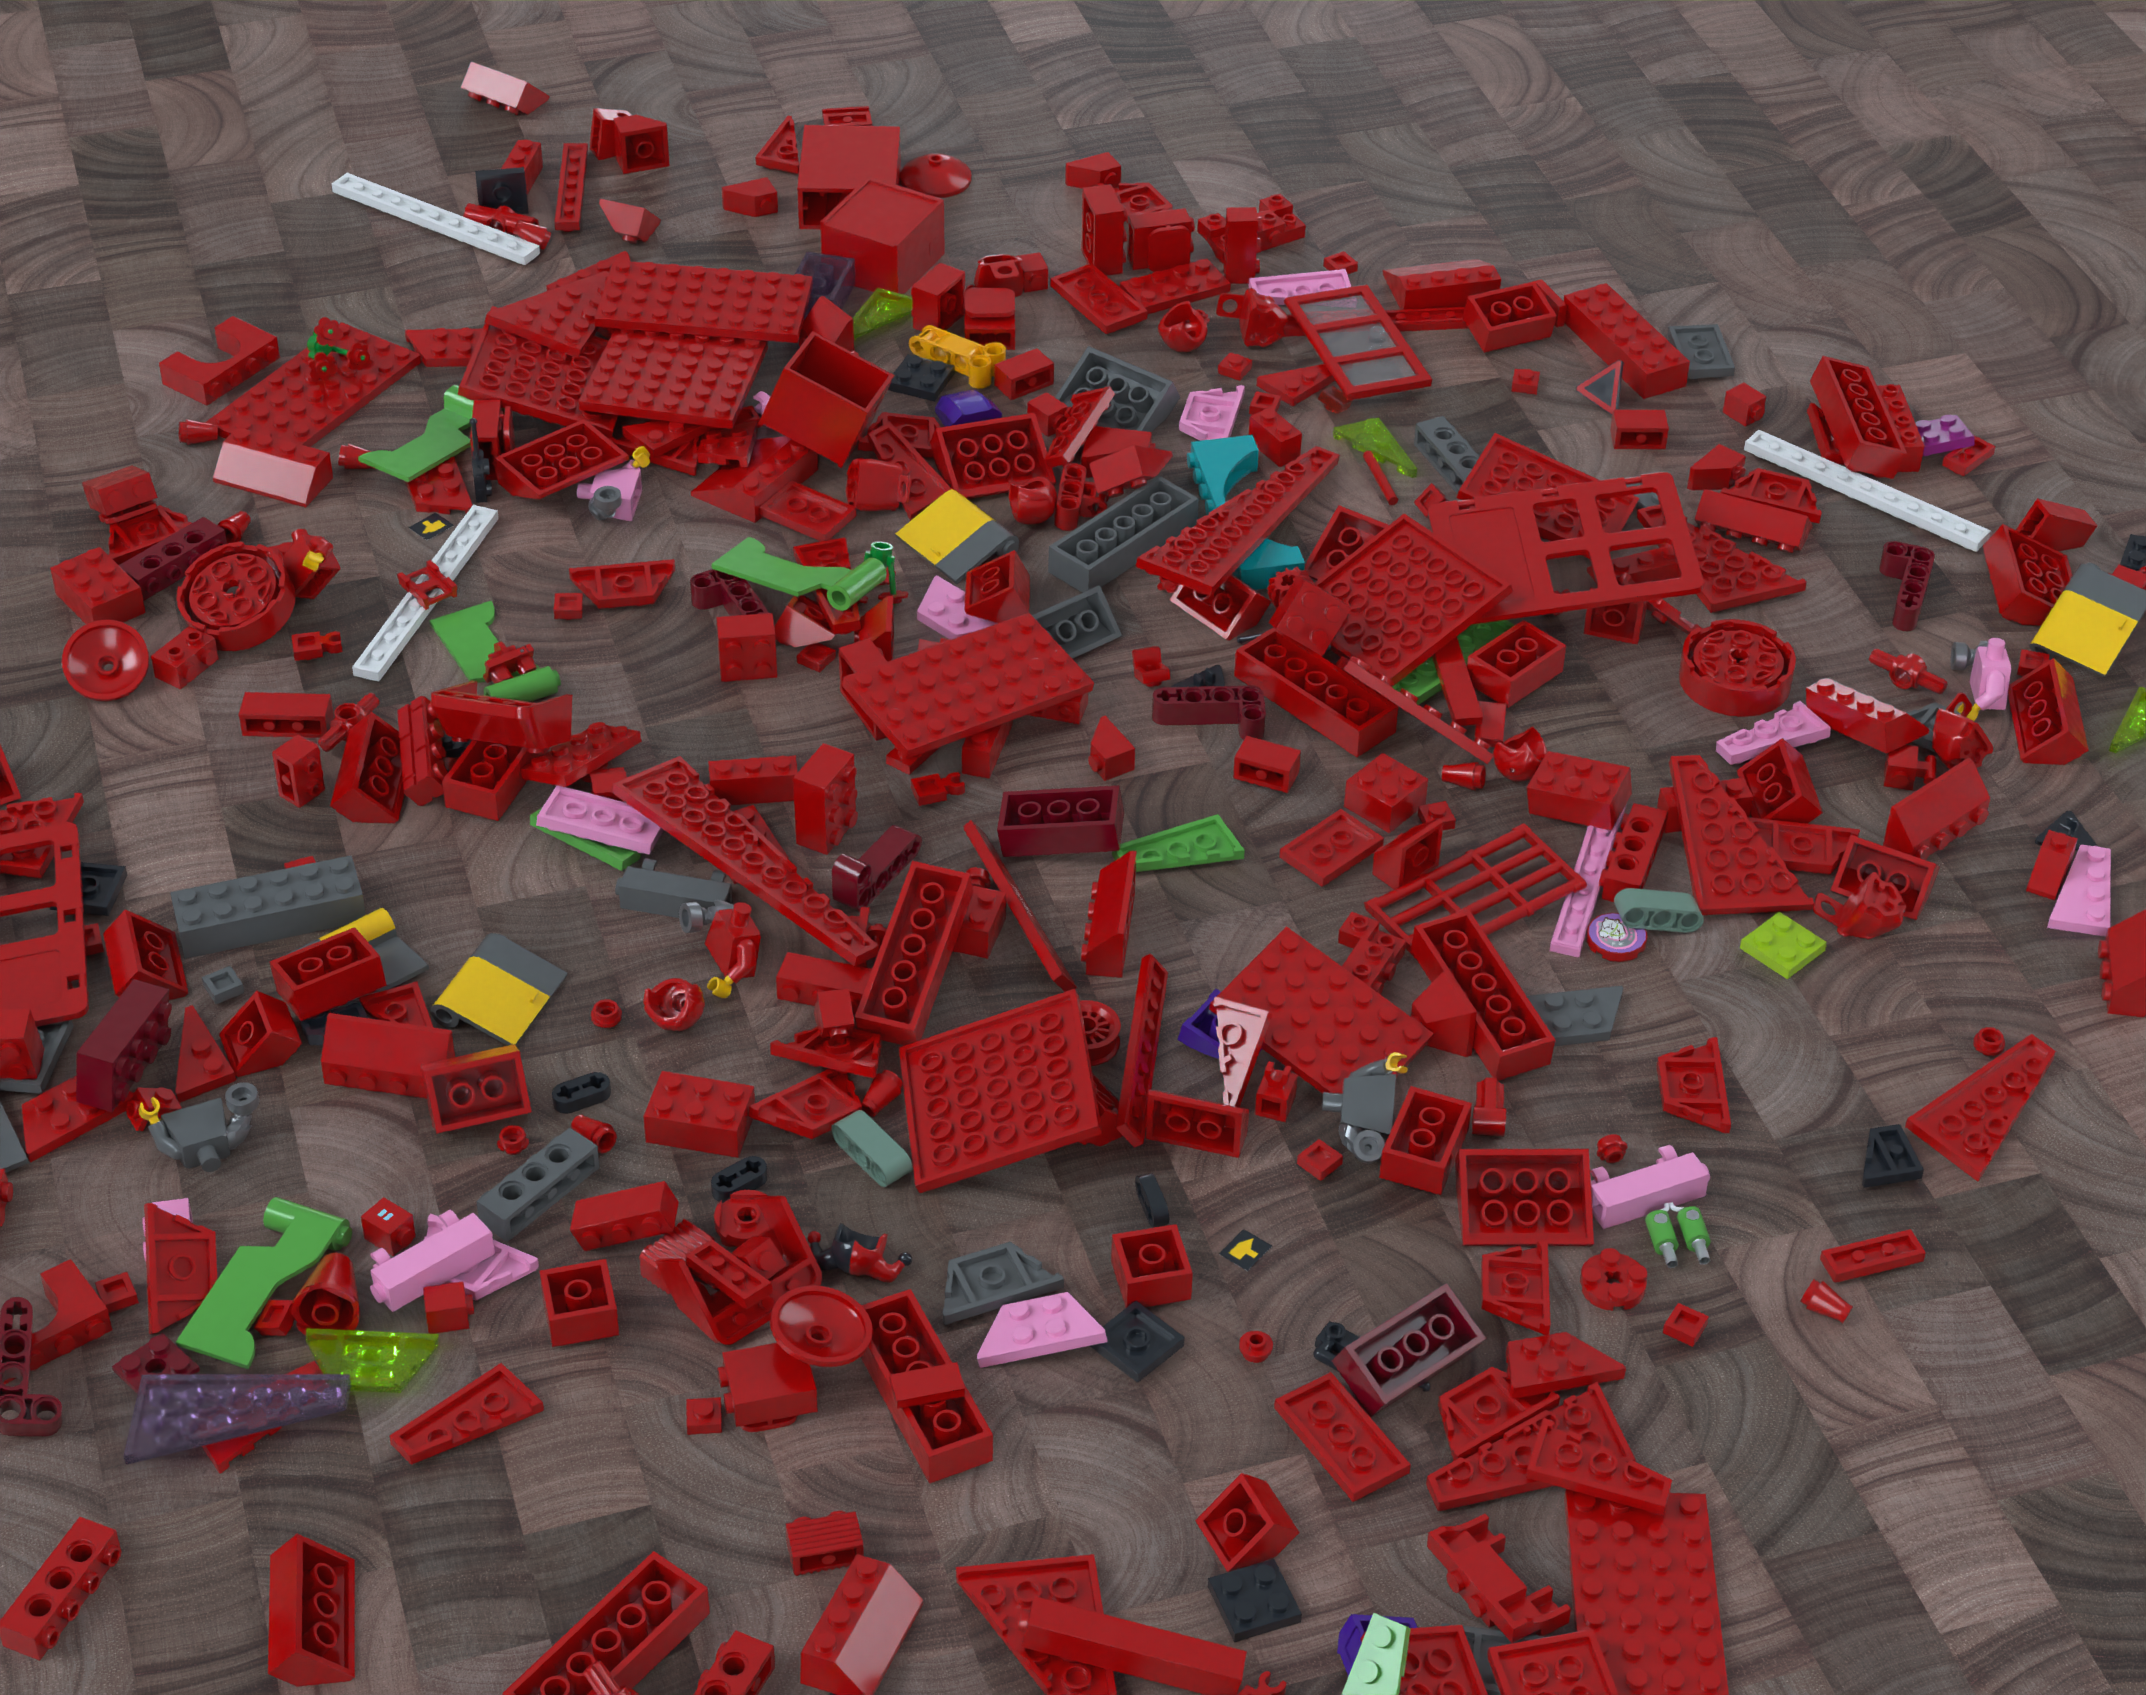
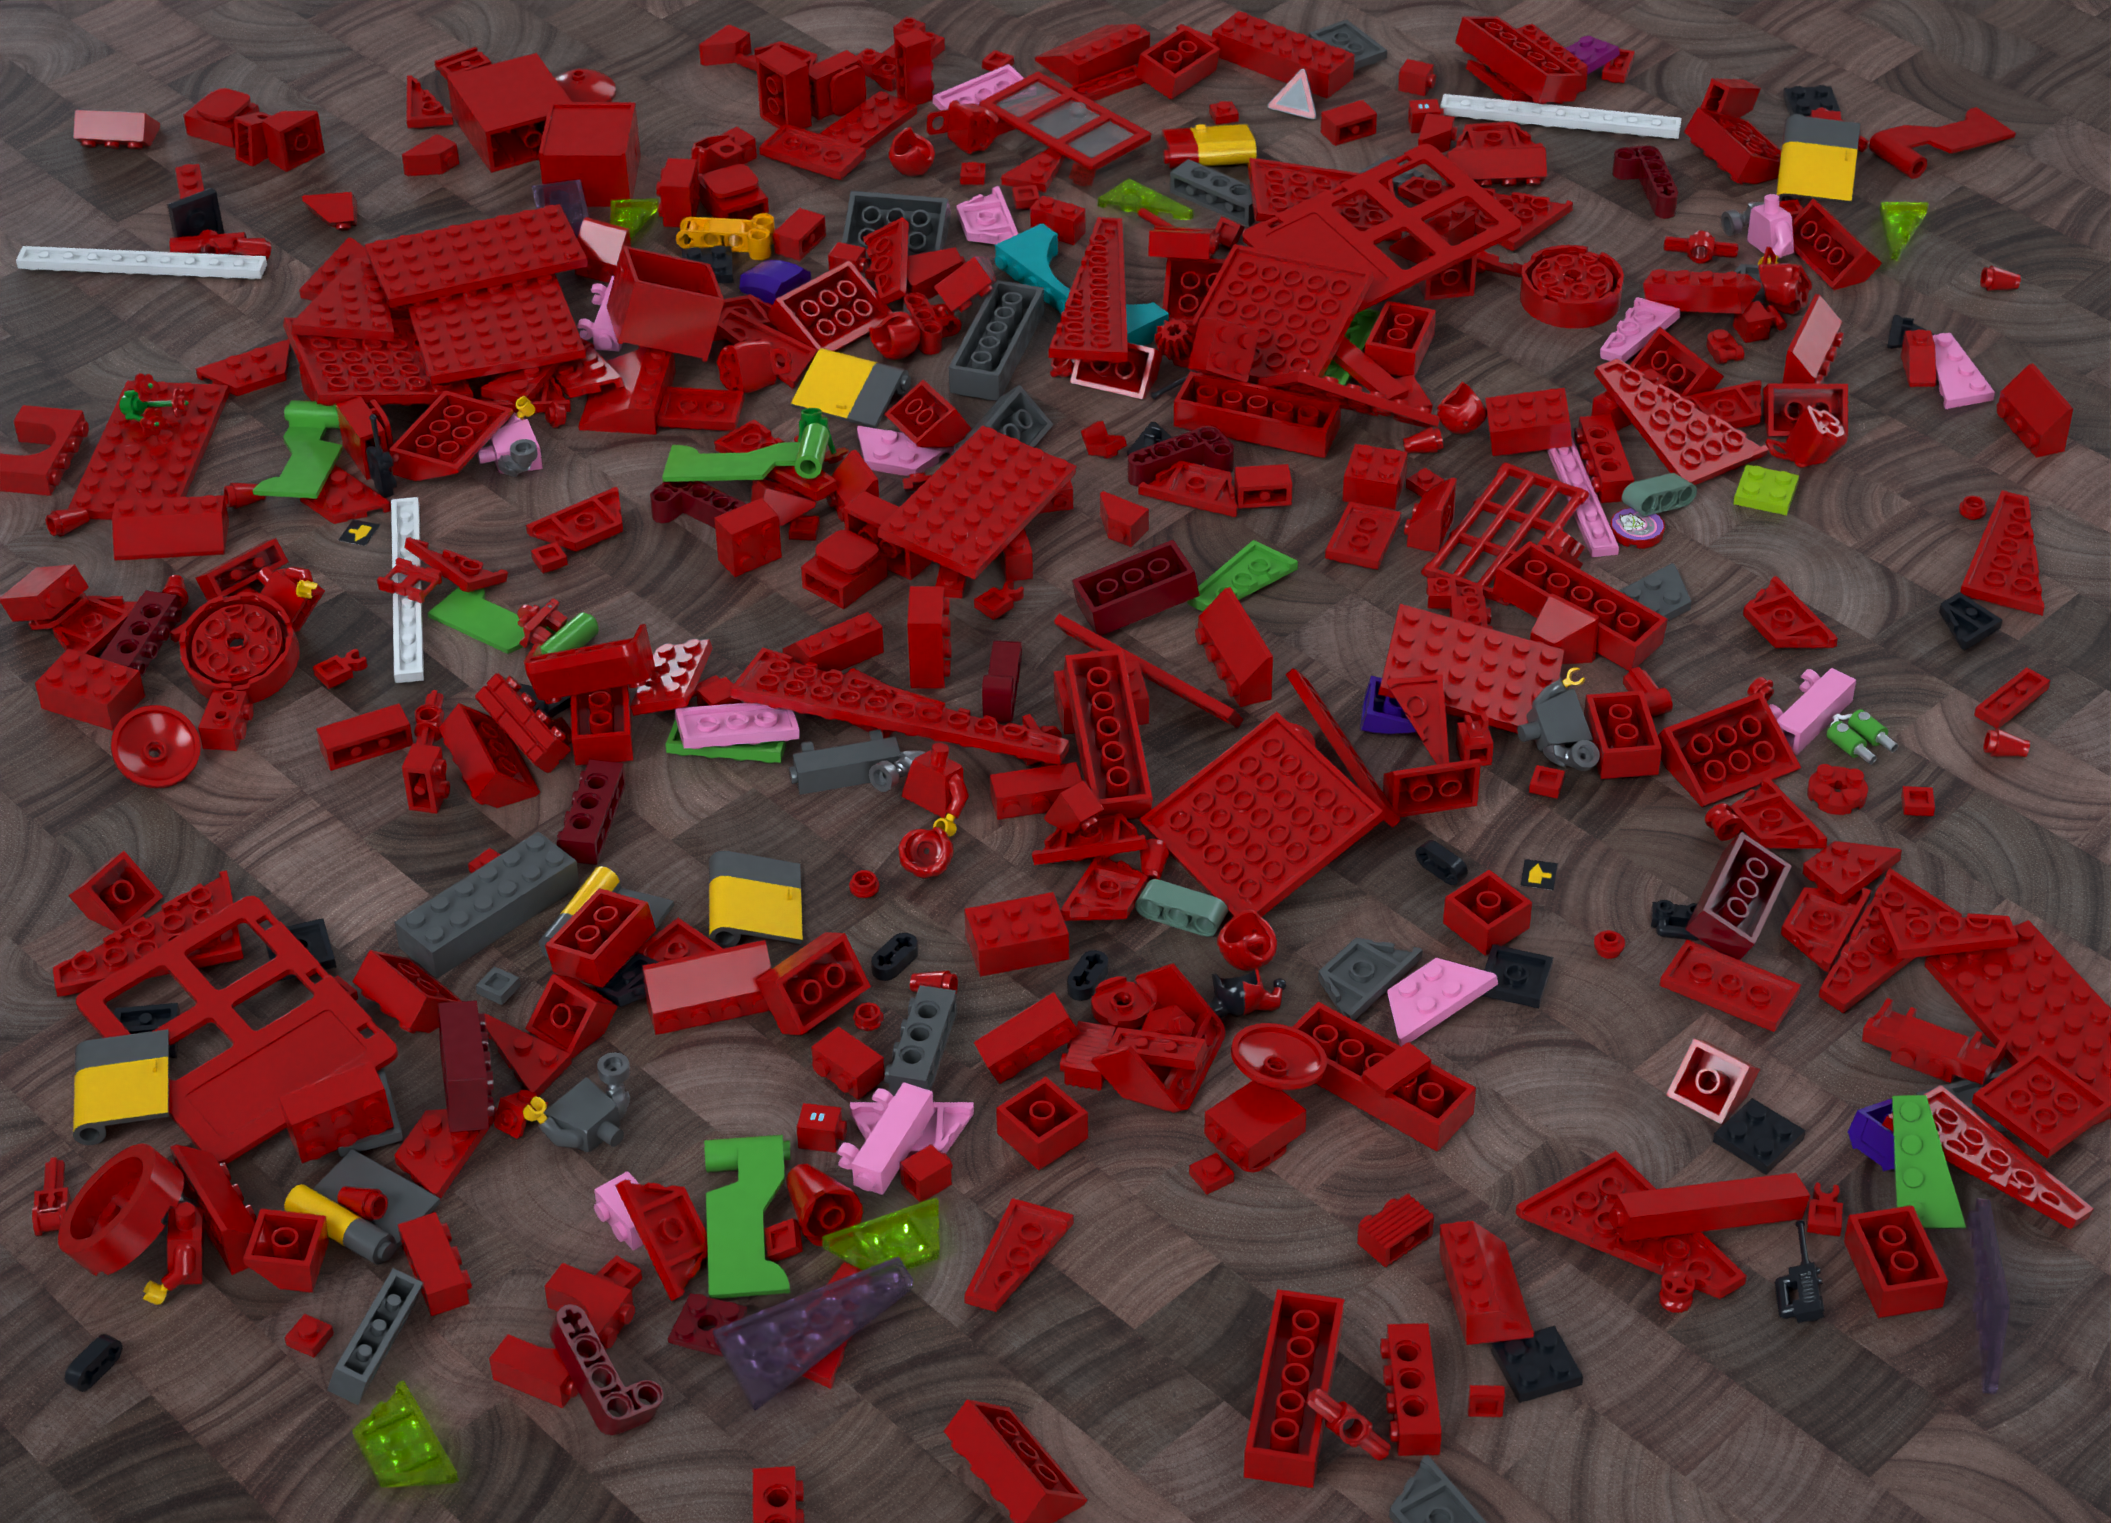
camera: 25 degrees left, 0 degrees up
(316, 522) = (241, 569): none -> red brick
(422, 856) = (592, 811): none -> dark red brick
(454, 1175) = (848, 1063): none -> red brick
(479, 587) = (459, 569): none -> red wing
(571, 187) = (251, 196): red plate -> none
(600, 94) = (215, 114): none -> red brick
(675, 474) = (555, 414): none -> red plate
(815, 707) = (844, 568): none -> red brick
(899, 1205) = (1247, 941): none -> red piece
(1203, 742) = (1194, 487): none -> red wing
(1365, 496) = (1183, 242): none -> red arch
(1464, 1268) = (1723, 822): none -> red wheel
(1482, 409) = (1209, 145): none -> yellow door
(1508, 937) = (1564, 547): none -> red hips
(1725, 437) = (1417, 112): none -> red brick
(1853, 782) = (1724, 347): none -> red plate

